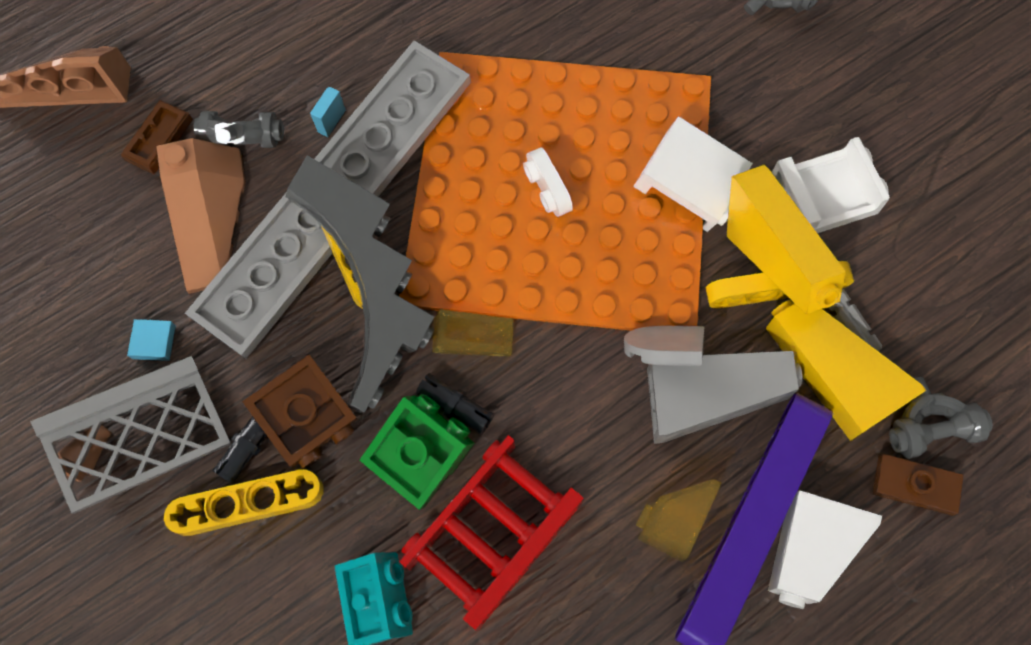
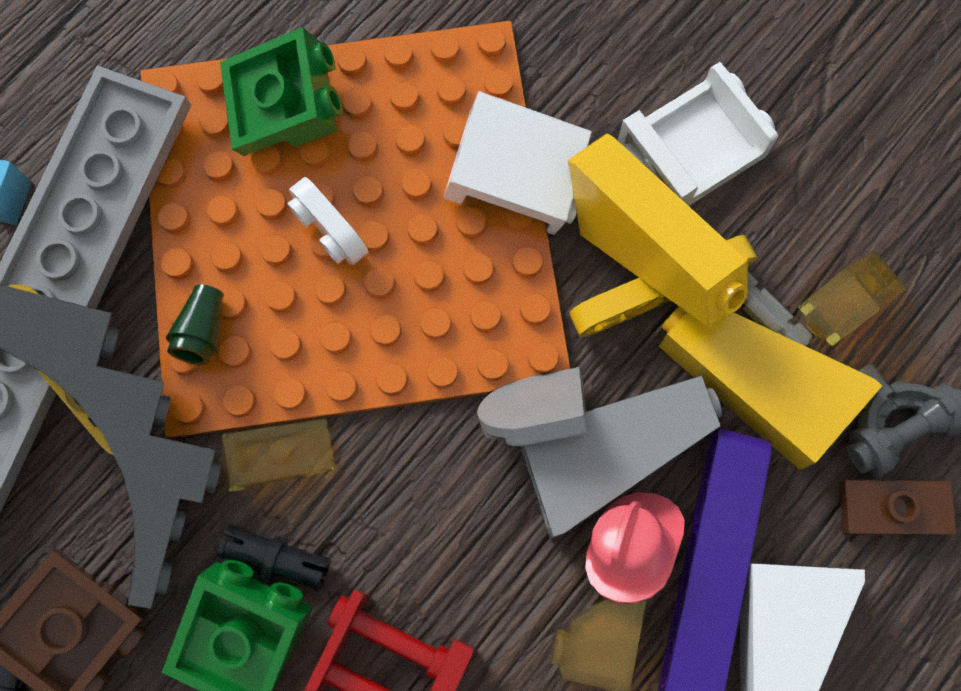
camera: 15 degrees left, 5 degrees up
(440, 232) = (197, 327): none -> dark green cone
(536, 87) = (280, 93): none -> green plate
(715, 458) = (634, 547): none -> coral piece
(917, 326) = (851, 298): none -> clear yellow slope

